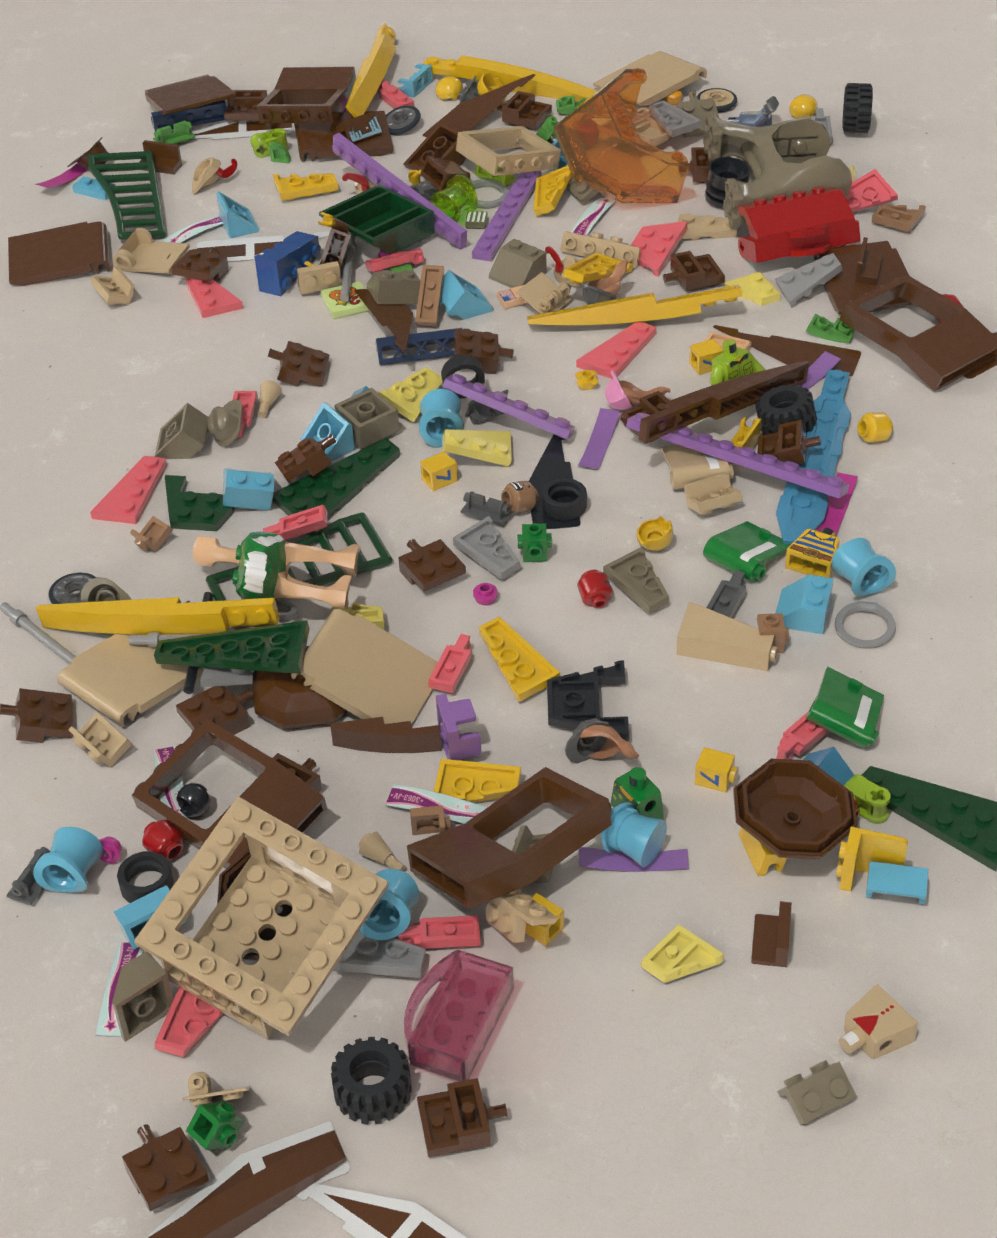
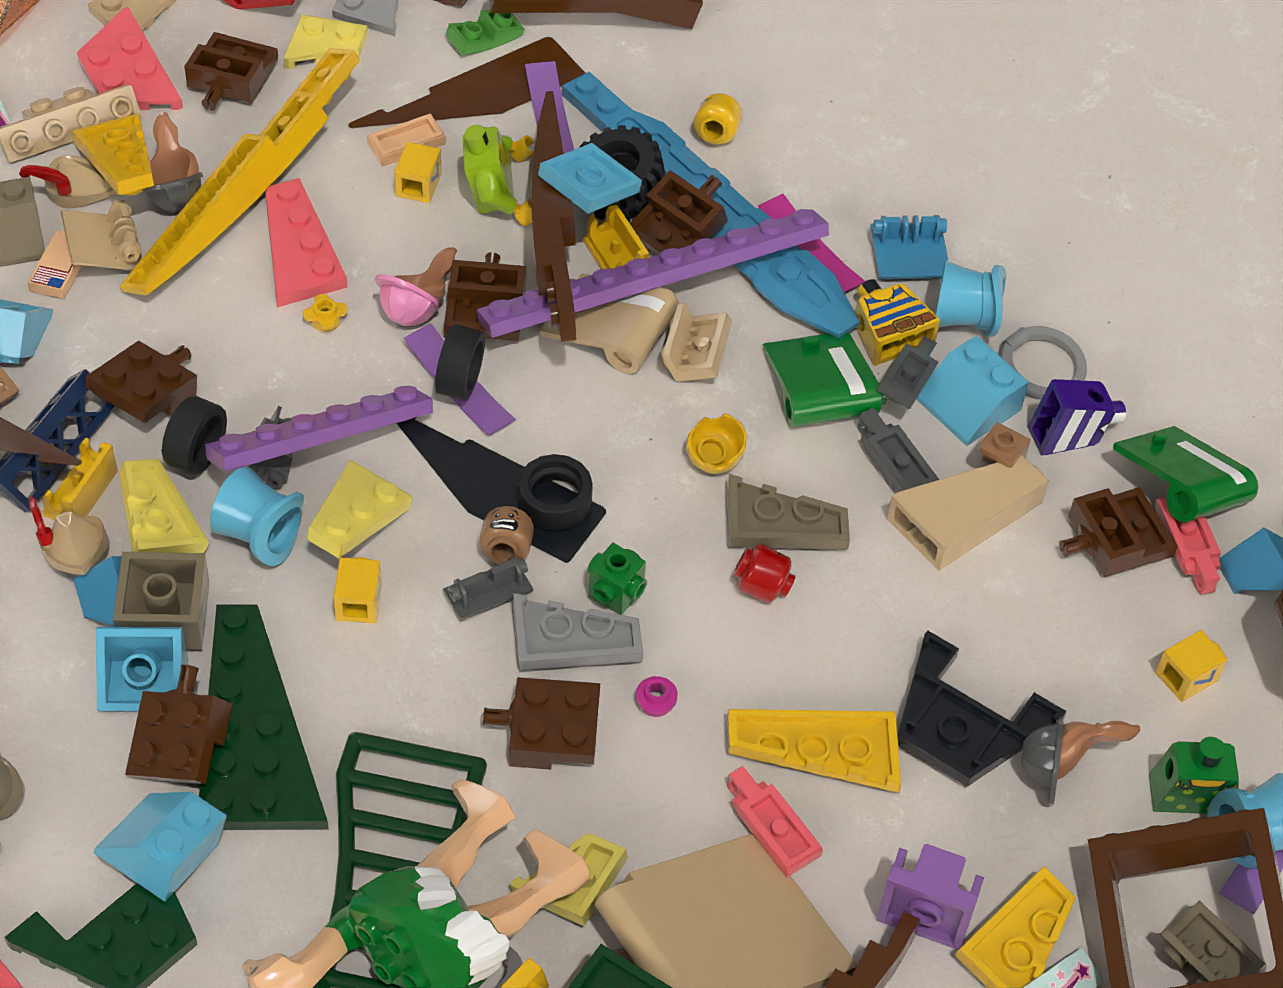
camera: 60 degrees left, 10 degrees up
(300, 523) = (316, 830): coral hinge -> none
(372, 377) = (73, 541): none -> tan piece
(400, 369) = (83, 483): none -> yellow hinge
(606, 435) = (460, 362): none -> black tyre
(753, 394) = (589, 178): none -> medium azure tile
(774, 700) = (1118, 531): none -> reddish brown plate
(781, 571) = (909, 373): none -> dark grey hinge
(831, 644) = (1073, 415): none -> dark purple torso
(883, 533) = (911, 248): none -> dark azure hinge

